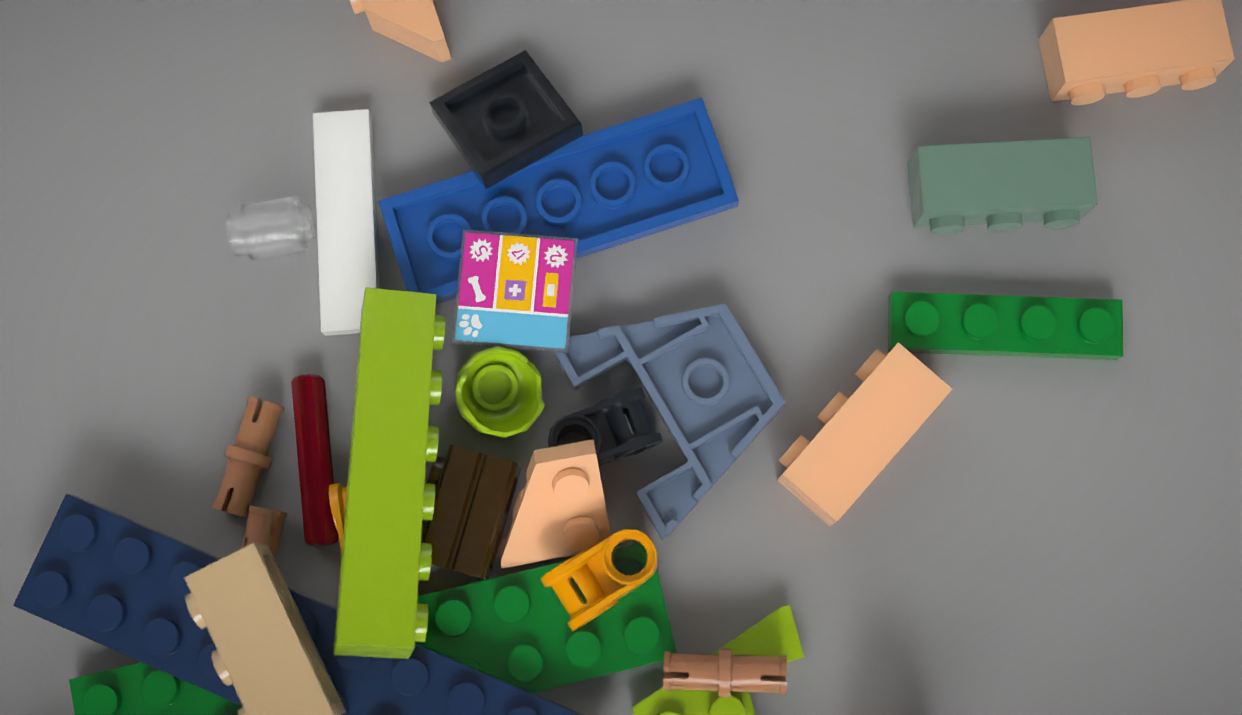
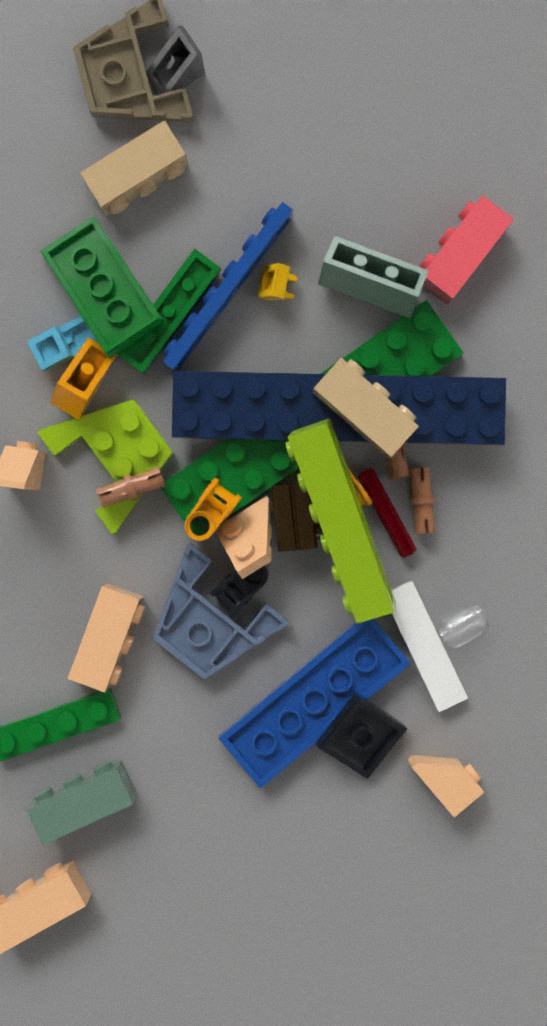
camera: 155 degrees right, 10 degrees up
(499, 392) = (303, 585): lime hair -> none
(515, 291) = (317, 642): piece -> none

